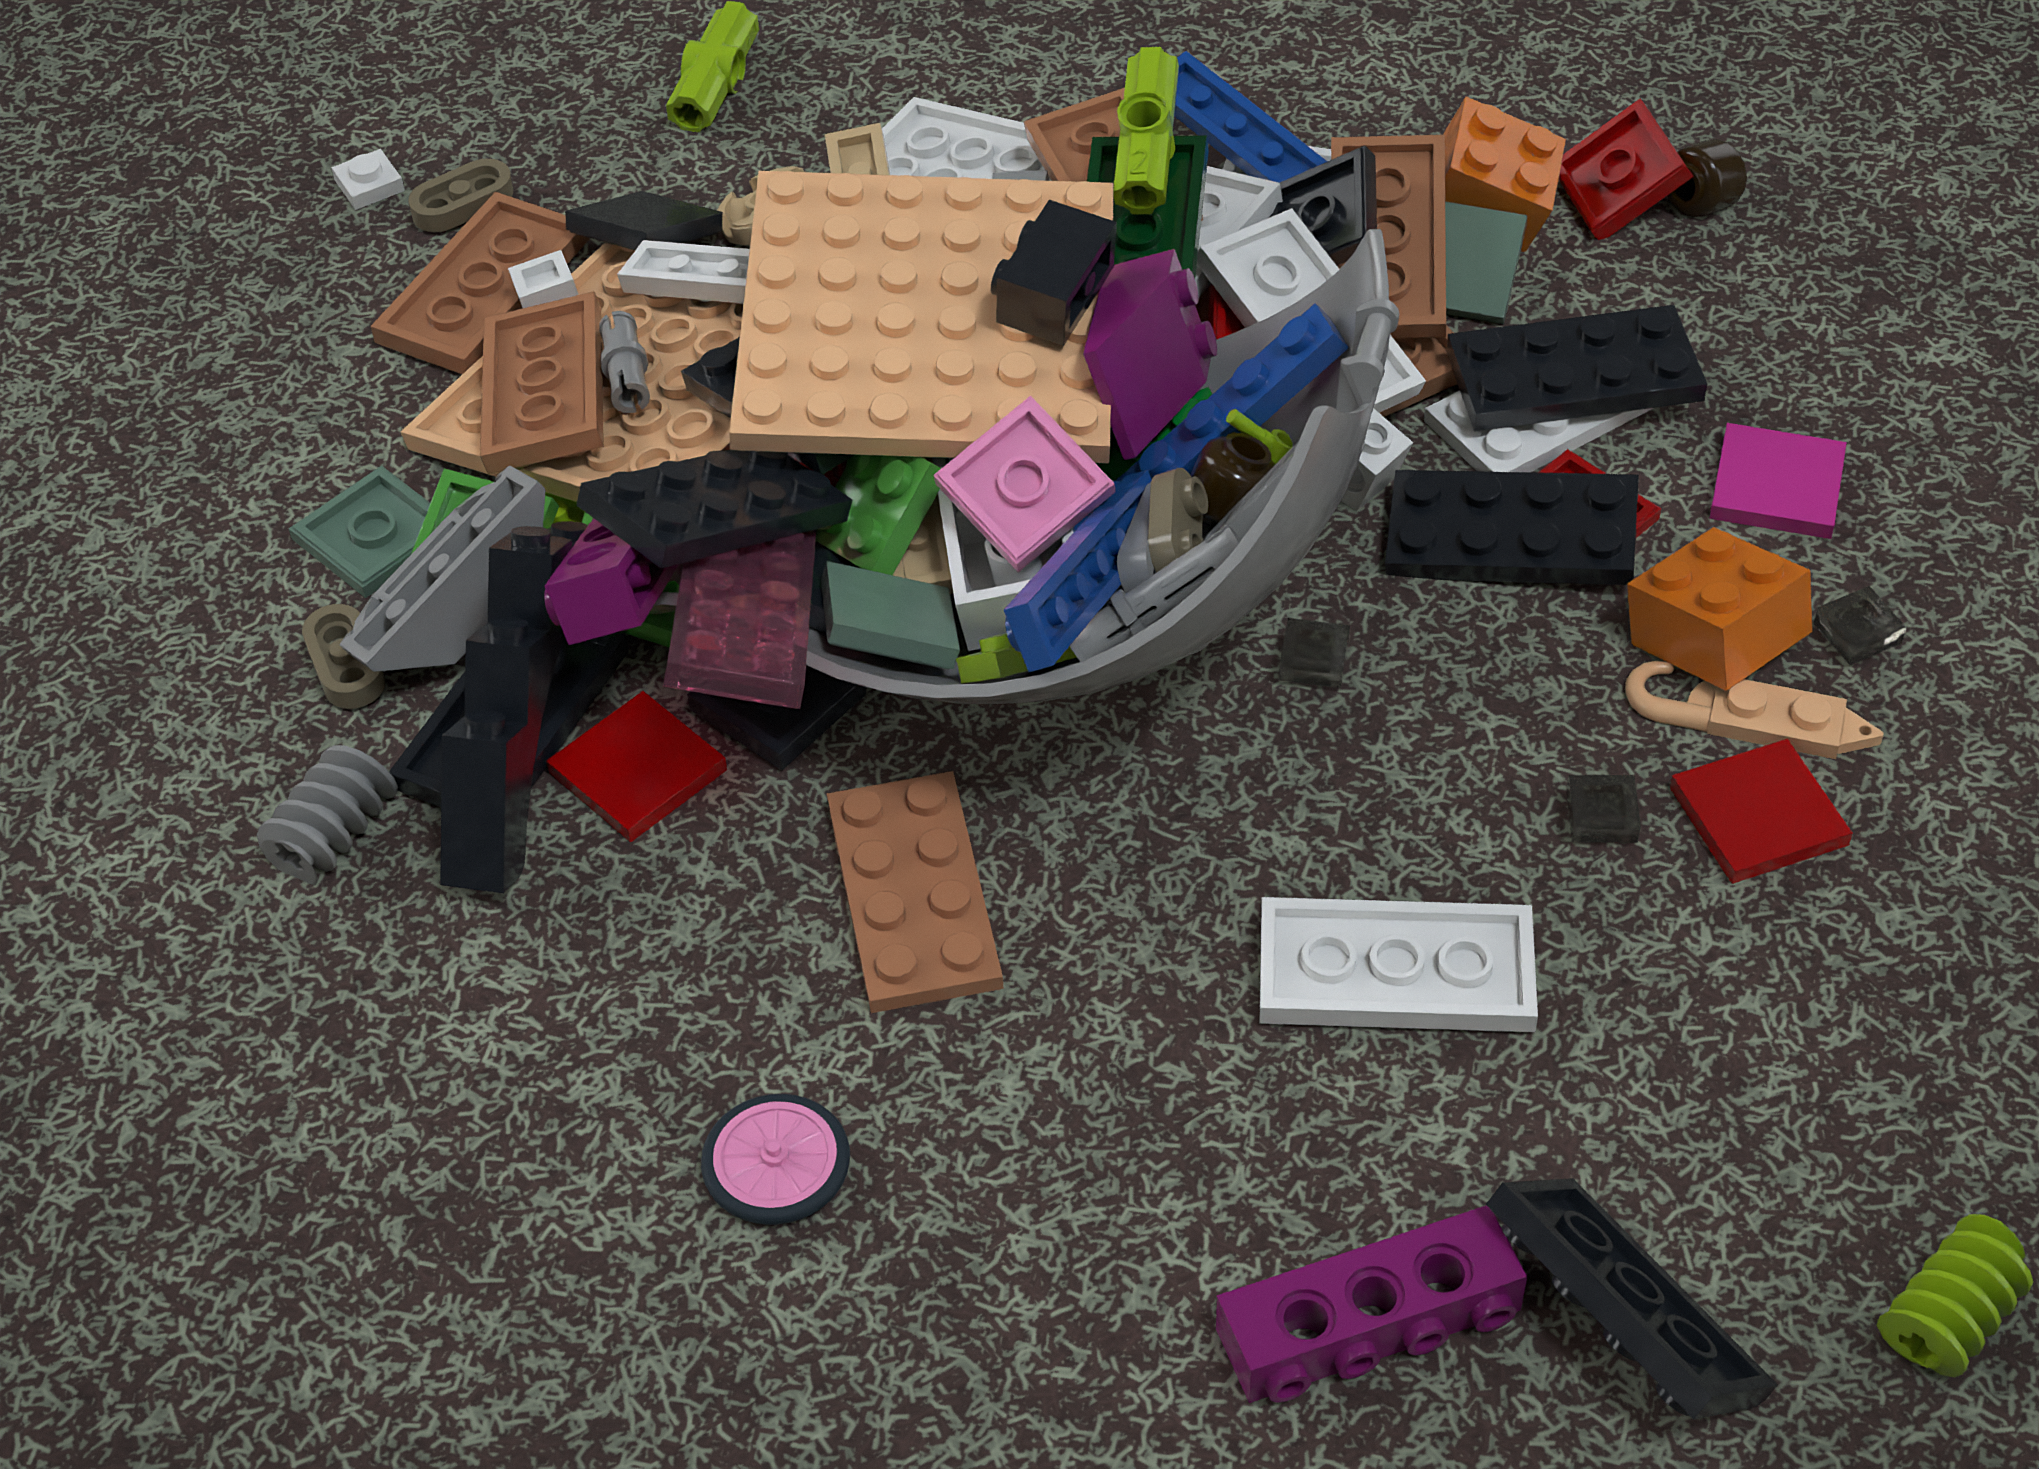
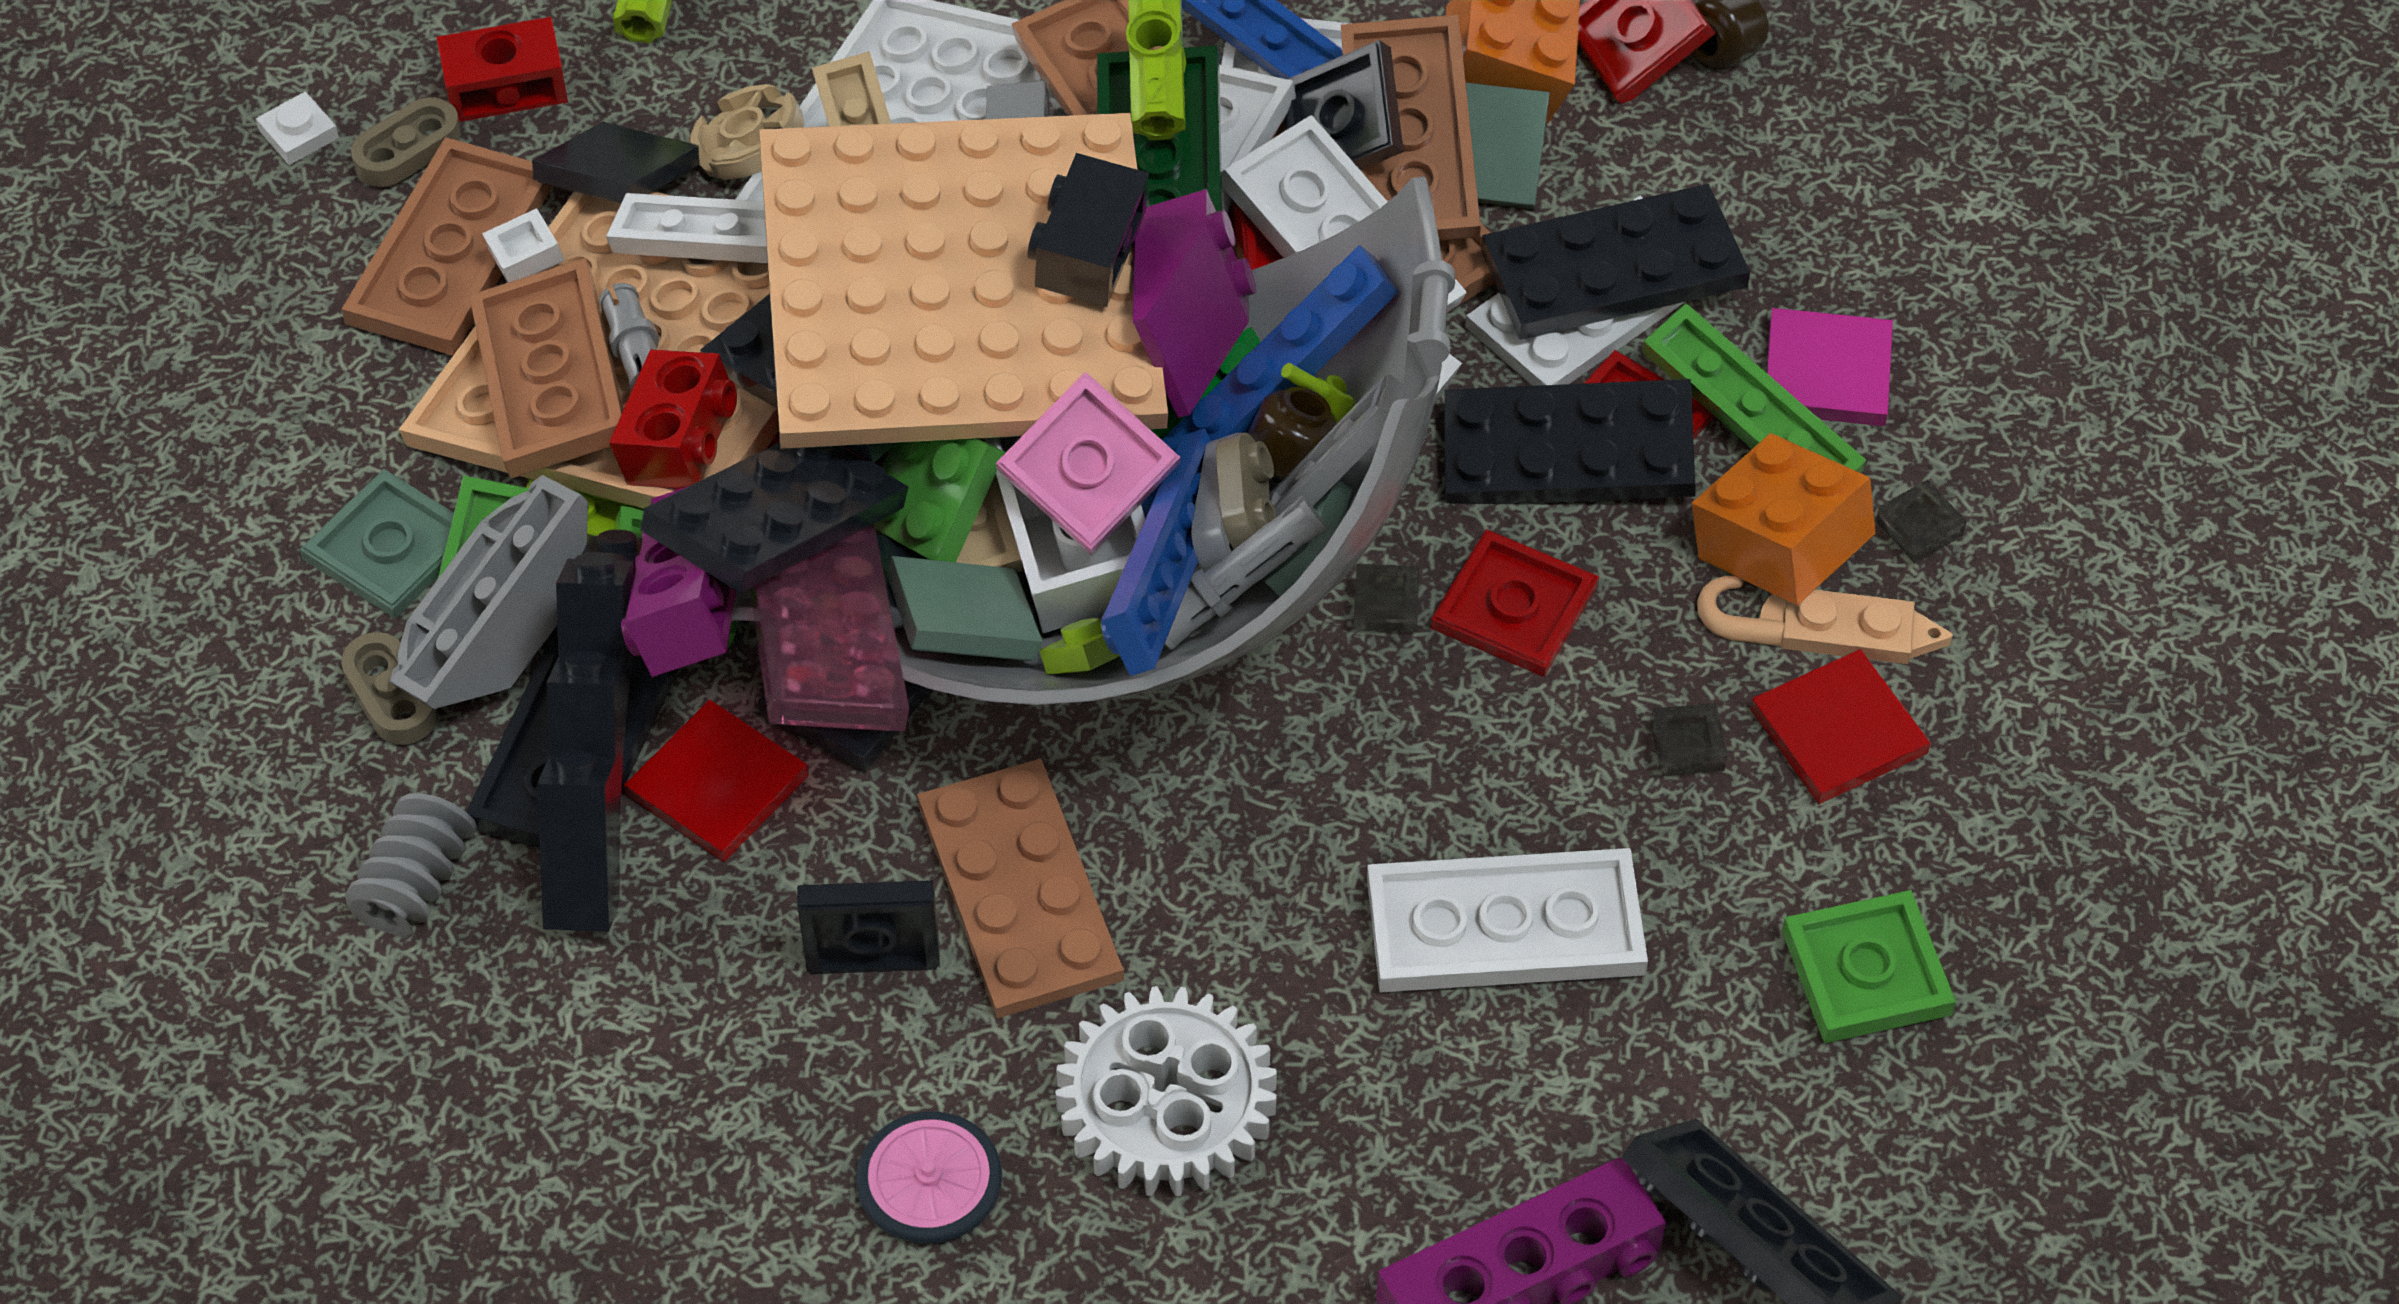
camera: 10 degrees left, 5 degrees up
(558, 140) = (502, 69): none -> red brick
(643, 421) = (673, 419): none -> red brick
(752, 908) = (869, 927): none -> black tile
(1027, 1097) = (1141, 1138): none -> white gear
(1442, 669) = (1514, 602): none -> red tile
(1682, 485) = (1739, 389): none -> bright green plate
(1769, 1044) = (1868, 966): none -> bright green plate
(1958, 1296) = (2061, 1197): lime piece -> none

